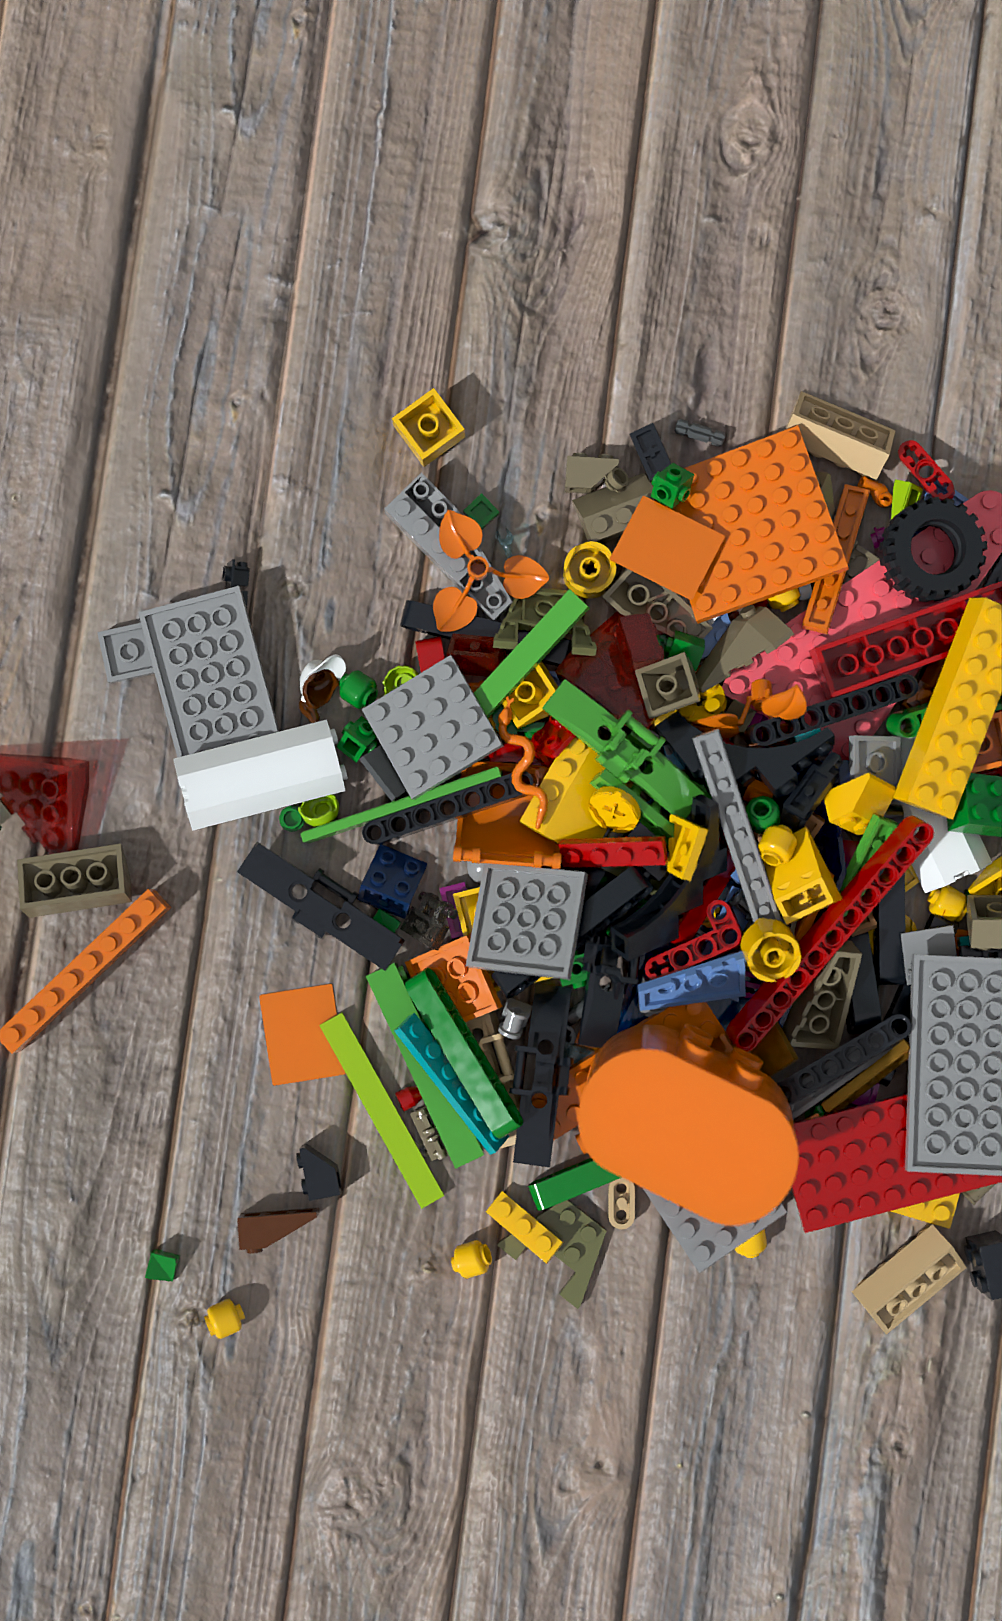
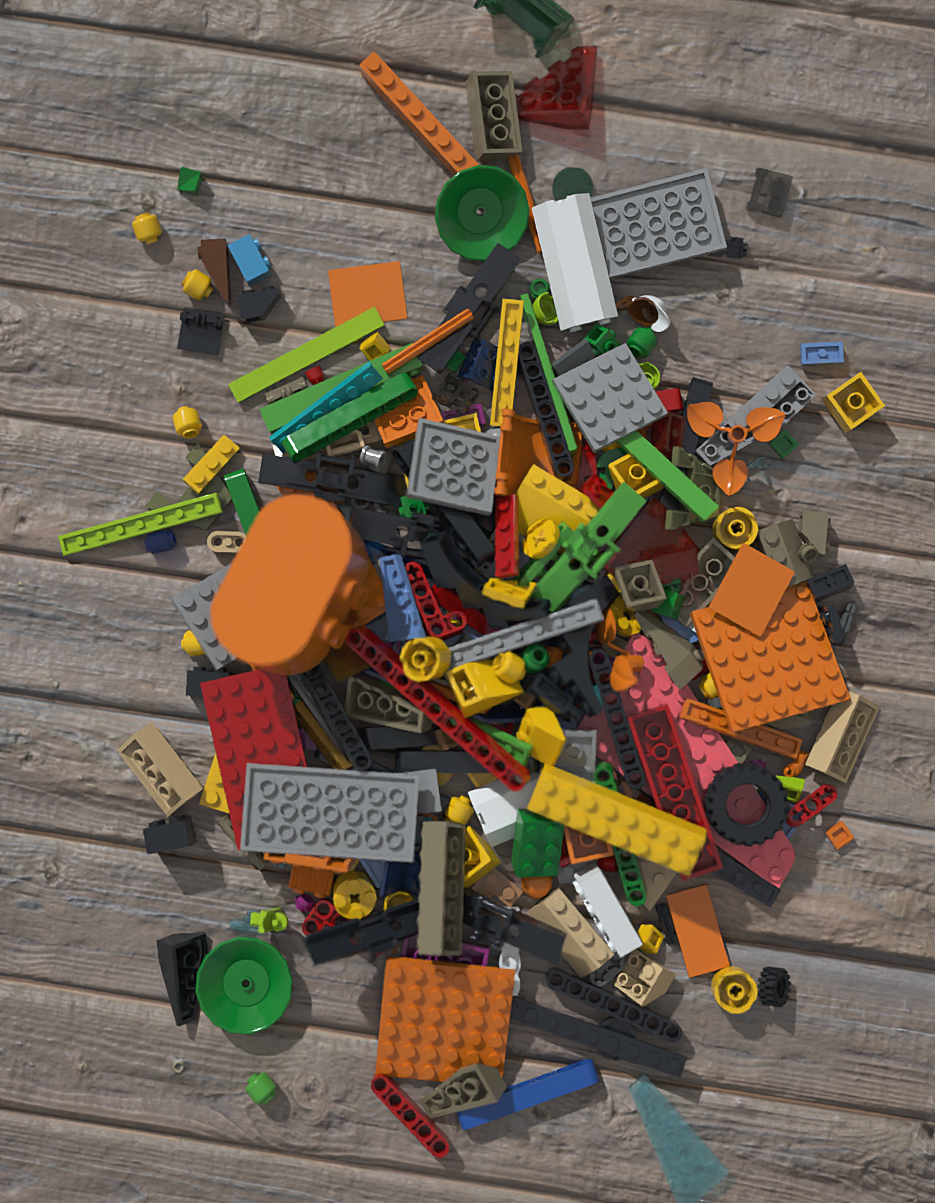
camera: 90 degrees right, 0 degrees up
(125, 653) = (674, 158): light grey plate -> none
(159, 780) = (571, 182): none -> clear green tile
(167, 526) = (776, 193): none -> clear smoke plate
(174, 839) = (518, 173): none -> orange axle
(225, 901) = (503, 216): none -> green dish
(263, 1185) = (250, 260): none -> dark azure brick
(296, 1252) = (197, 284): none -> yellow head
(354, 1245) = (200, 331): none -> black hinge
(364, 957) = (427, 341): none -> orange axle
(367, 467) = (821, 353): none -> medium blue plate
(370, 1023) = (374, 347): none -> yellow slope
(386, 857) = (507, 359): none -> yellow plate
(504, 719) = (614, 454): orange animal -> none
(602, 1314) = (140, 524): none -> lime tile
(623, 1288) = (160, 541): none -> clear blue brick
(672, 485) = (802, 595): green brick -> none
(704, 450) = (831, 623): none -> black plate
(791, 1232) = (199, 676): none -> black brick
(958, 437) = (839, 835): none -> orange tile

